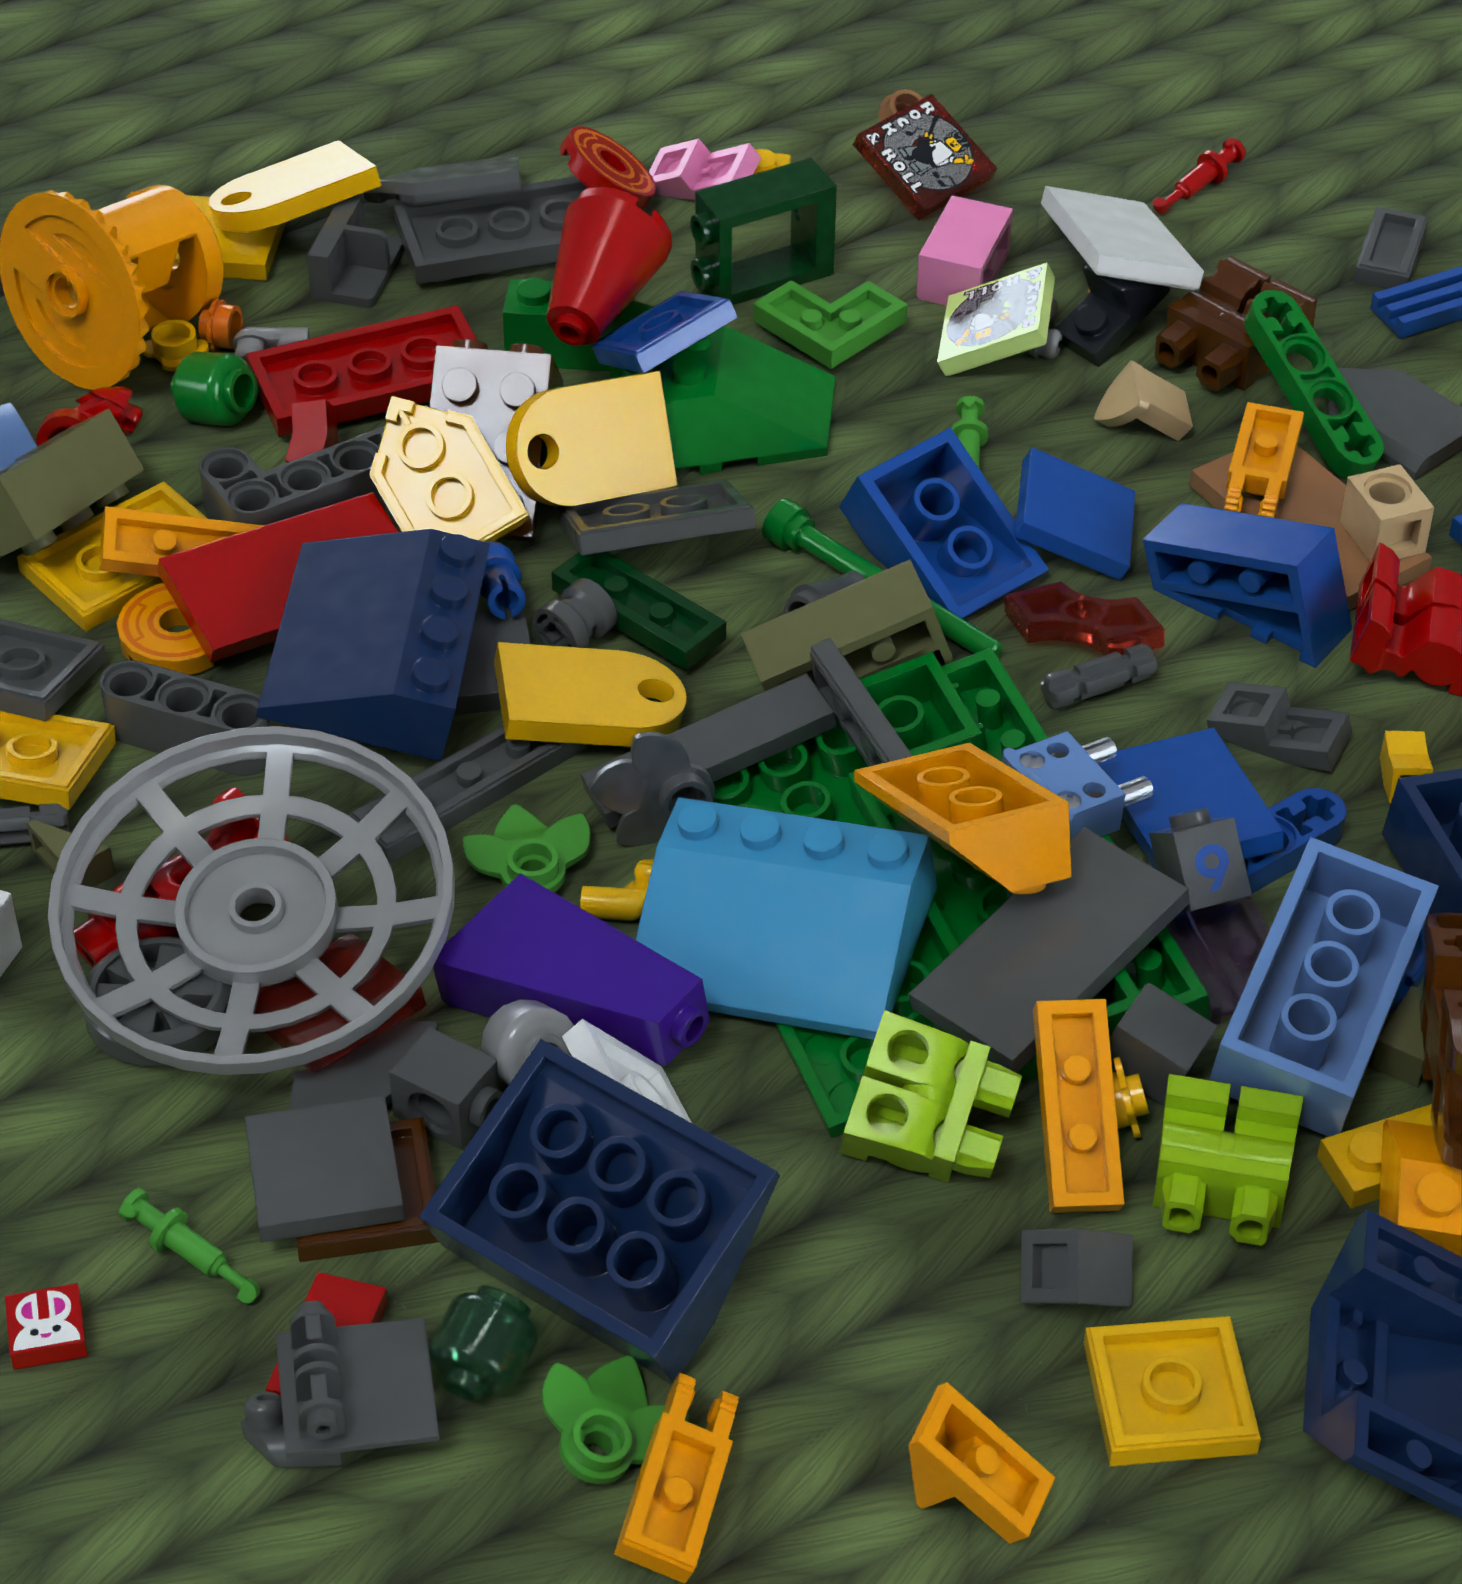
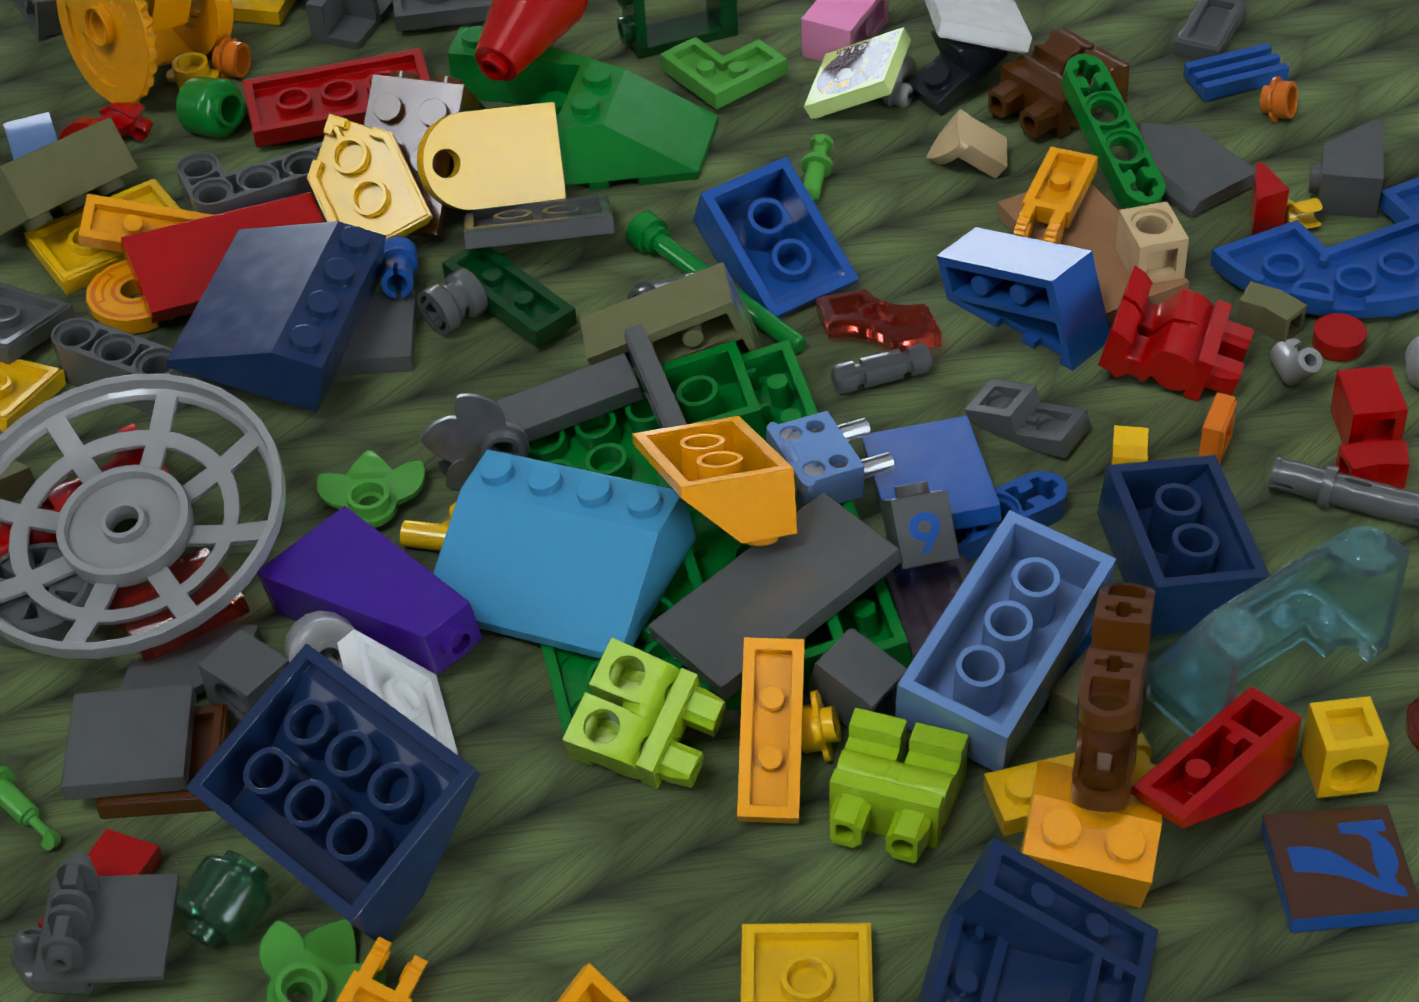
camera: 10 degrees right, 0 degrees up
(259, 338) = (258, 68): light grey arm -> none
(313, 428) = (277, 138): red piece -> none
(472, 782) = (347, 425): dark grey tile -> none
(584, 694) = (445, 360): yellow tile -> none
(663, 331) = (566, 70): blue tile -> none
(1075, 514) = (888, 233): blue tile -> none
(1076, 1267) = (744, 871): dark grey panel -> none

